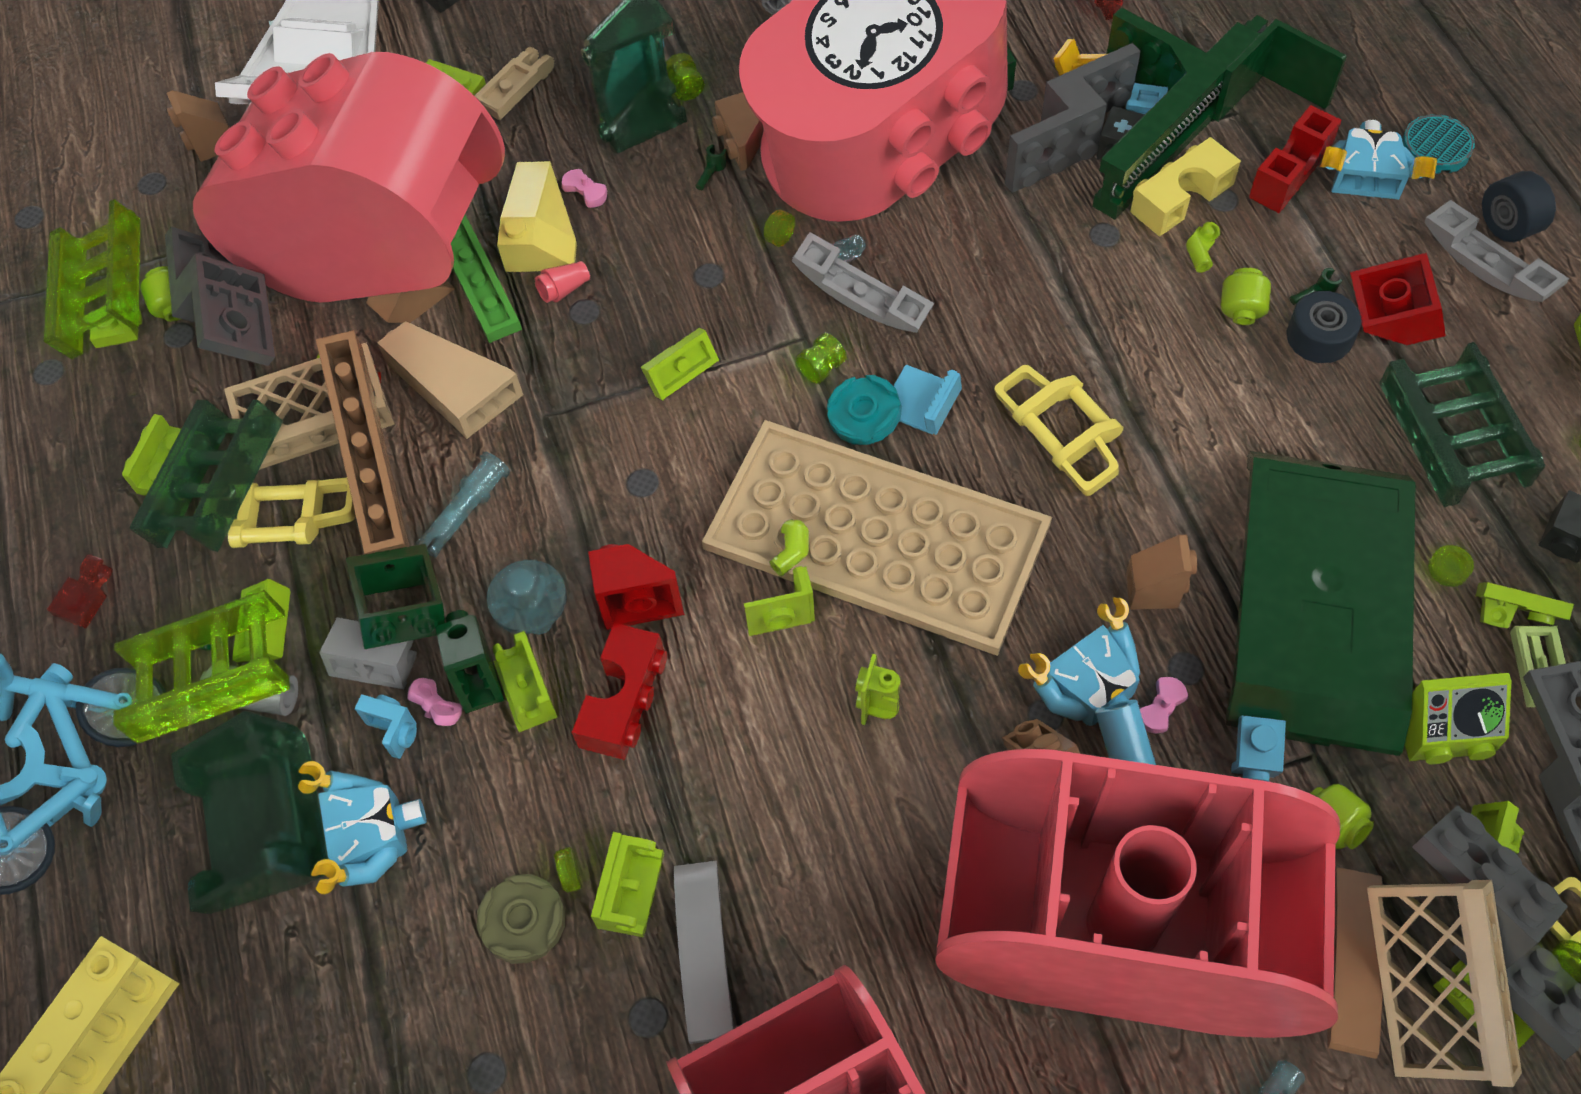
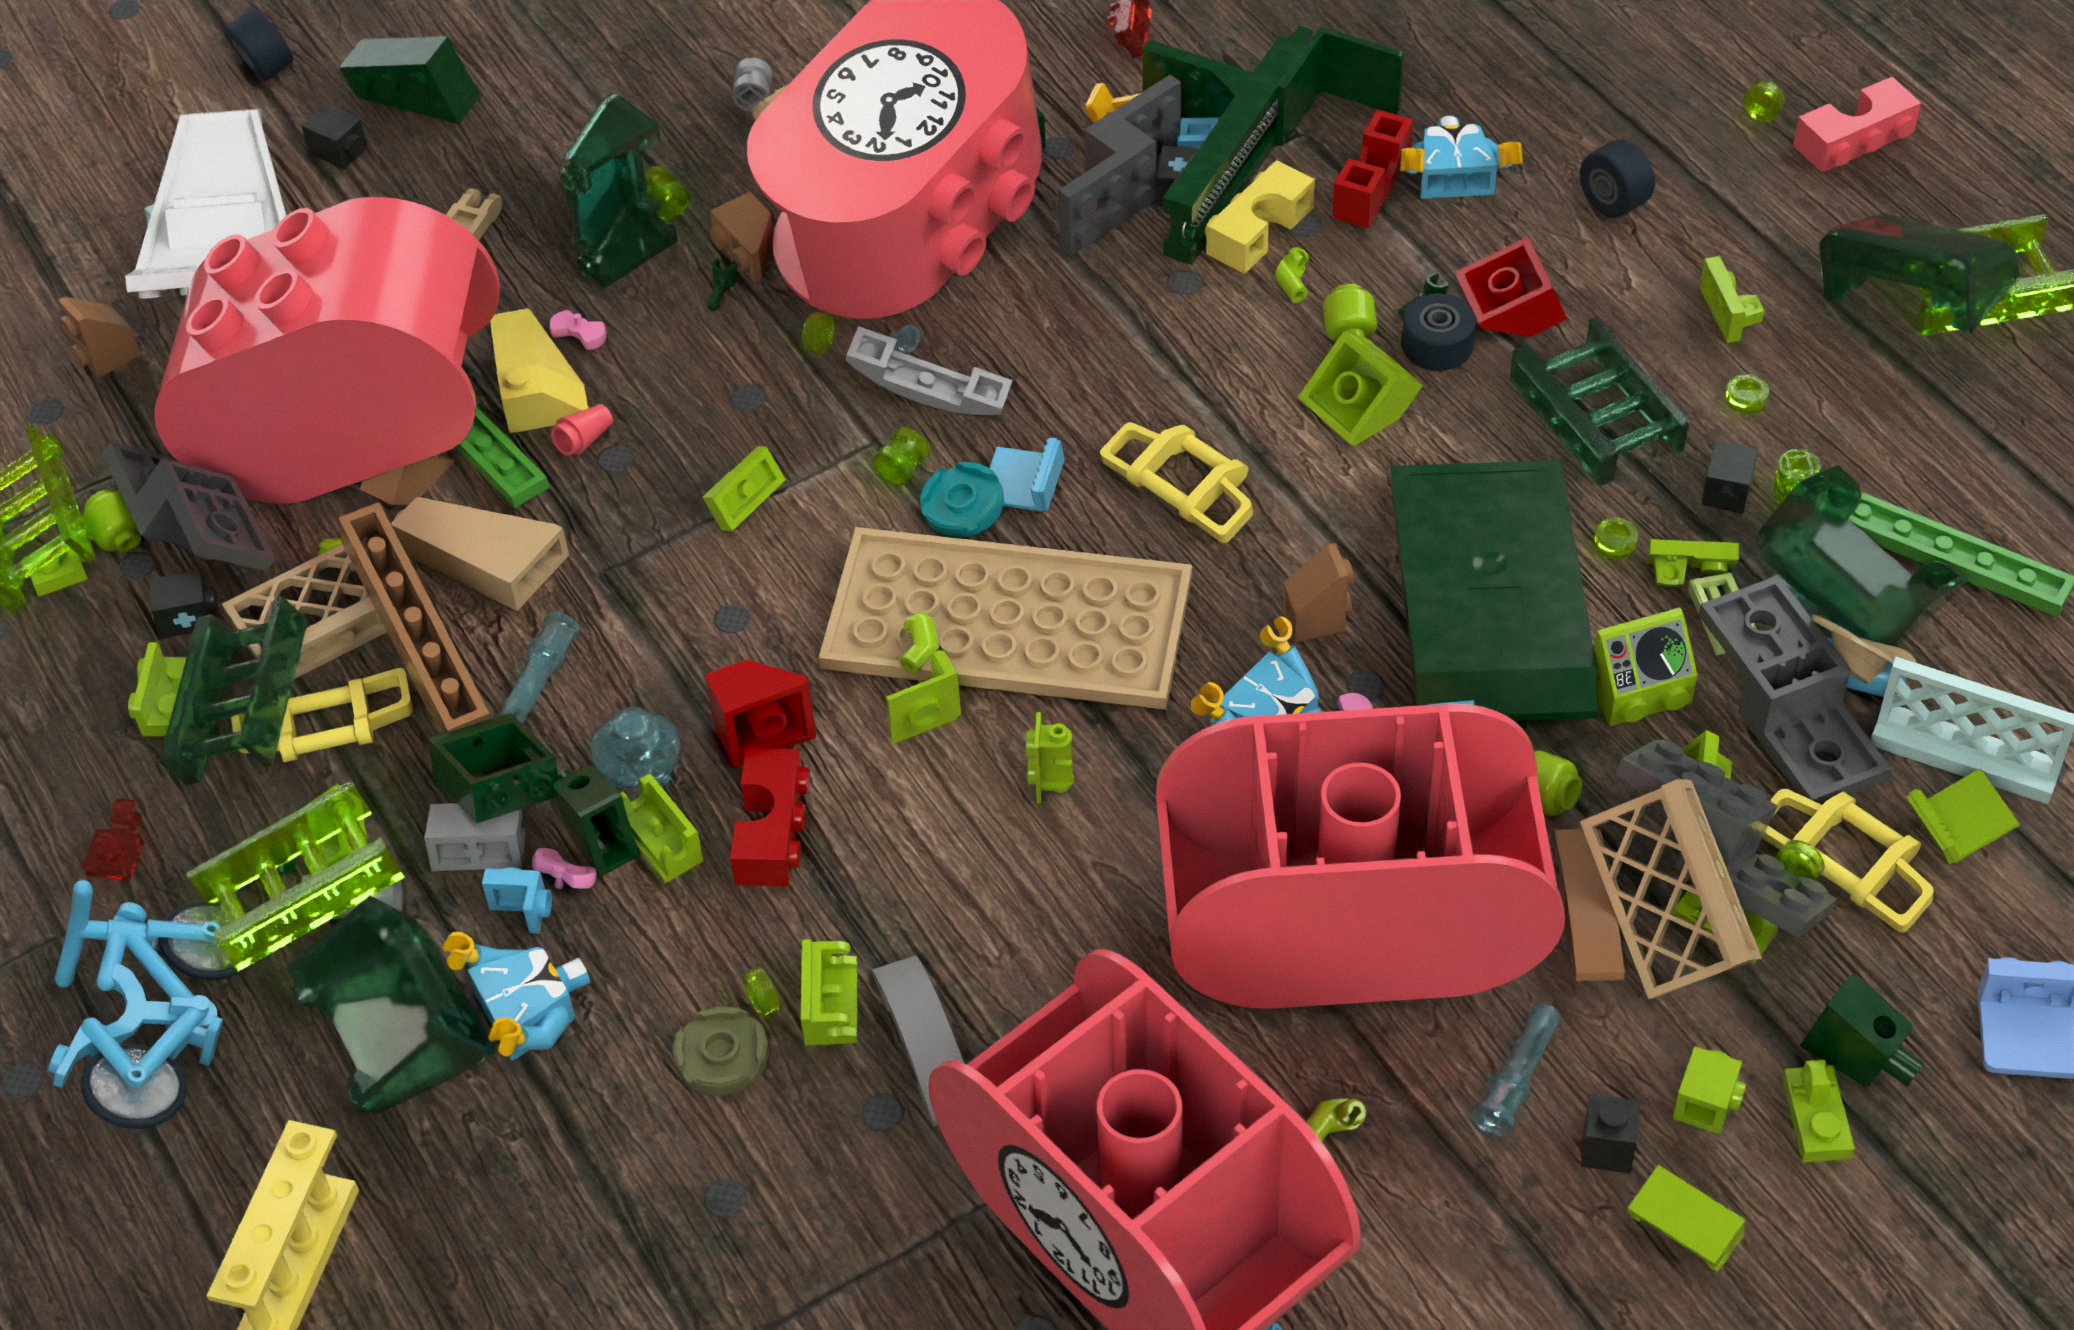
camera: 15 degrees left, 10 degrees down
(196, 379) = (180, 601): none -> pearl dark grey brick
(1240, 370) = (1359, 389): none -> lime slope
(1442, 139) = (1526, 122): tile -> none
(1488, 260) = (1596, 238): light grey slope -> none

